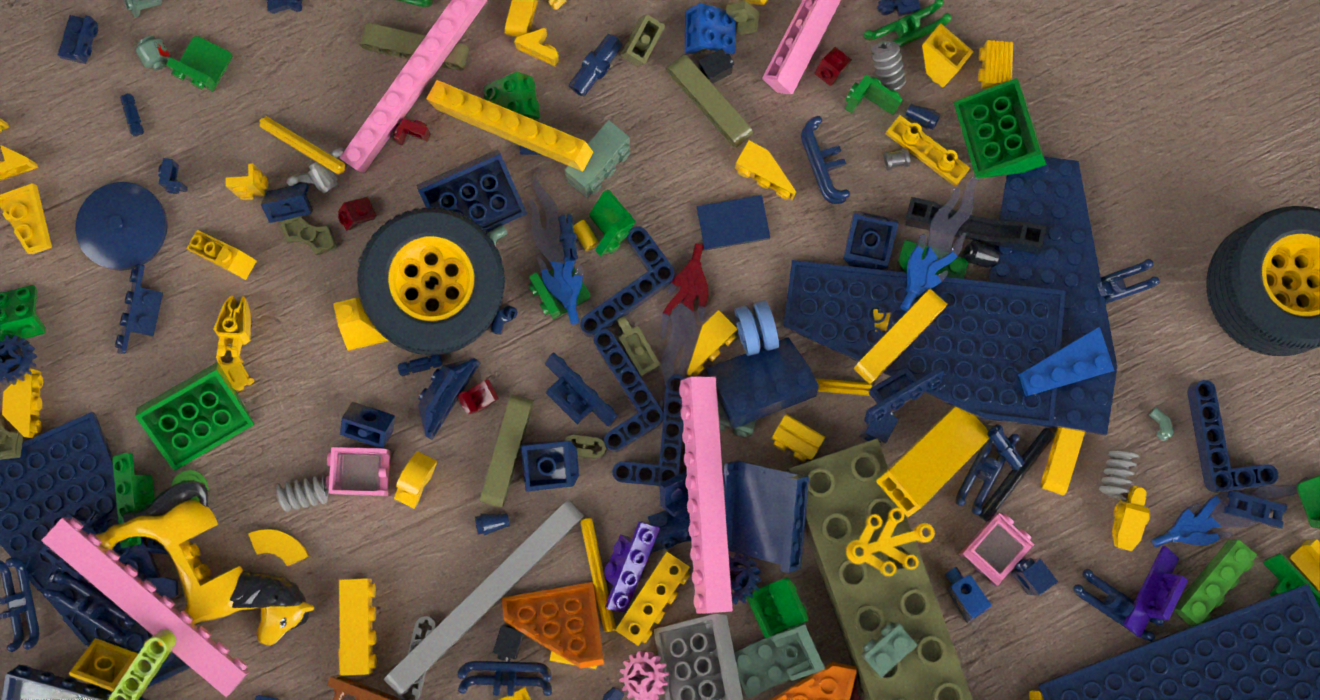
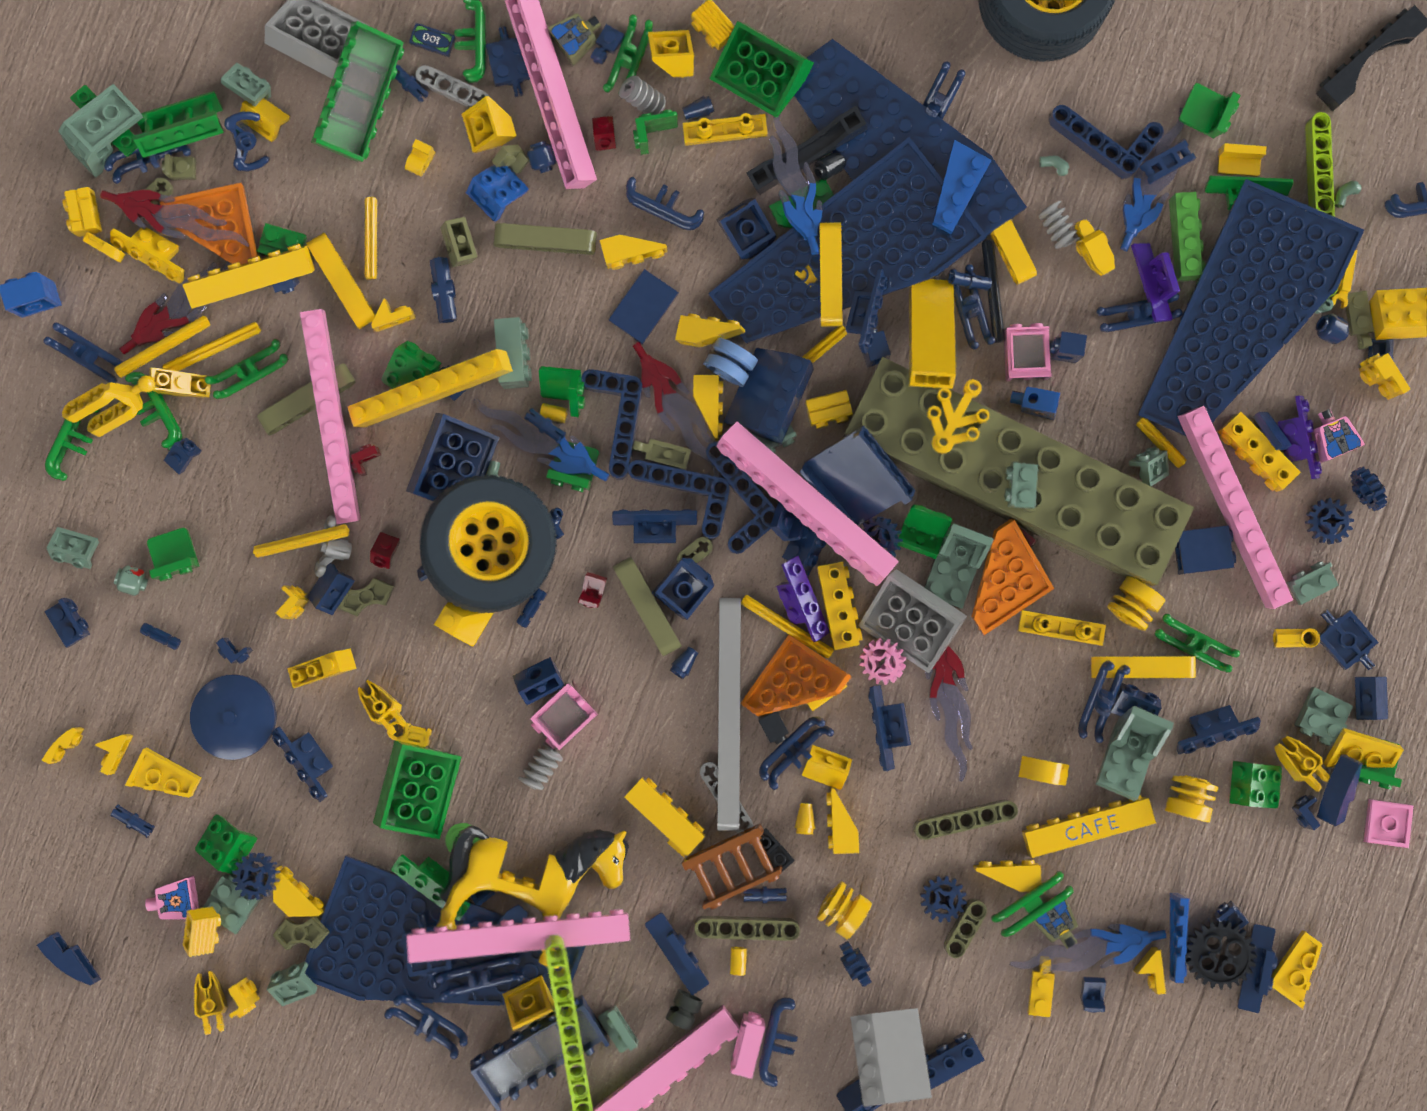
camera: 40 degrees left, 5 degrees up
(280, 544) = (559, 815): yellow tile -> none
(414, 478) = (605, 684): yellow brick -> none
(443, 393) = (566, 610): dark blue wedge -> none
(716, 66) = (526, 210): black brick -> none
(758, 285) = (703, 332): none -> yellow slope
(767, 38) = (541, 157): none -> dark blue head
(896, 158) = (709, 155): flat silver bush -> none

